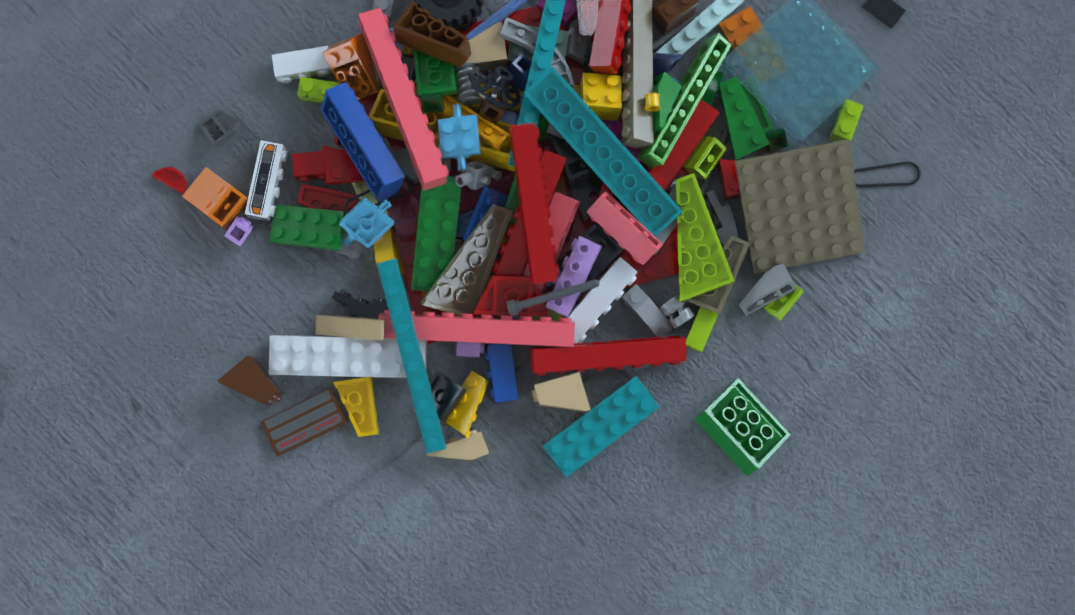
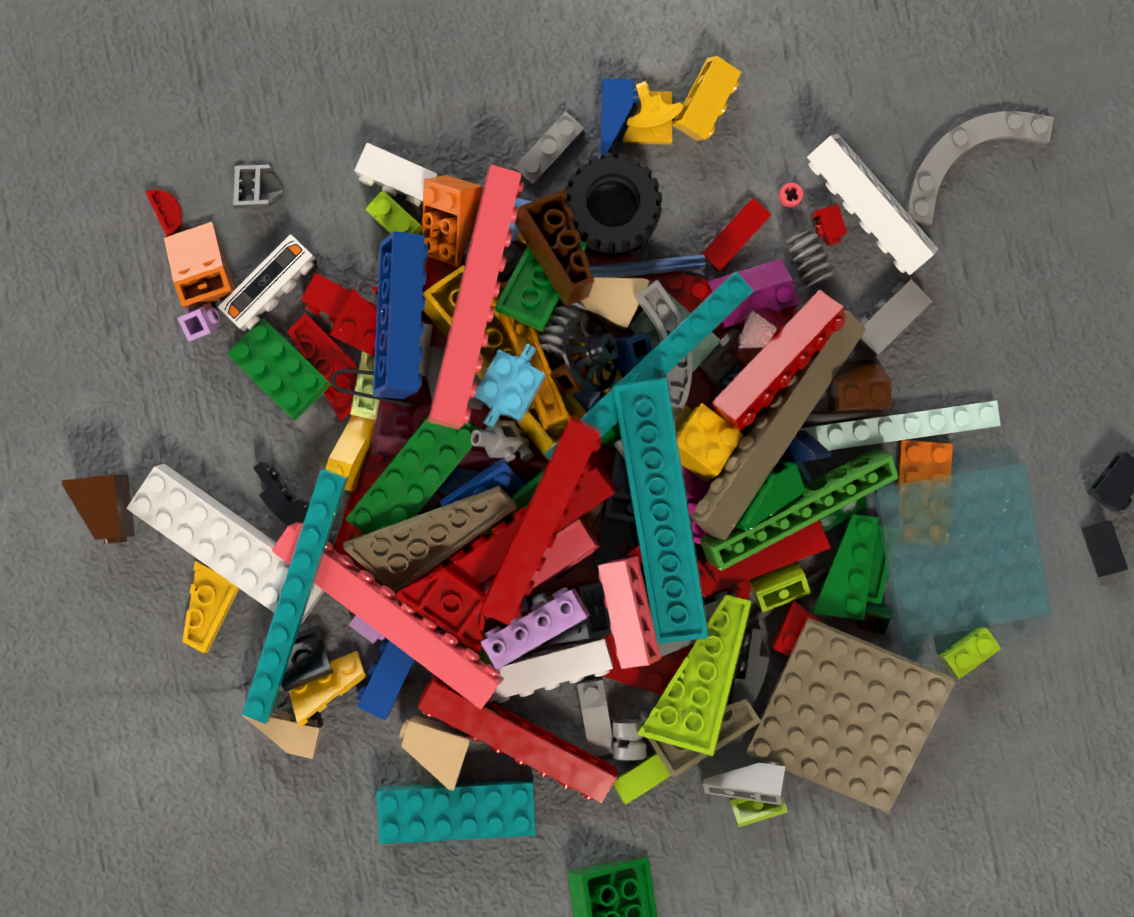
camera: 40 degrees right, 5 degrees up
(304, 422) = (134, 583): dark grey tile -> none
(350, 327) = (249, 515): tan slope -> none
(366, 222) = (343, 411): medium azure plate -> none
(432, 102) = (506, 325): dark green plate -> none
(516, 306) = (444, 620): dark grey piece -> none
(652, 102) = (756, 493): yellow axle -> none
(889, 184) = (983, 731): black piece -> none

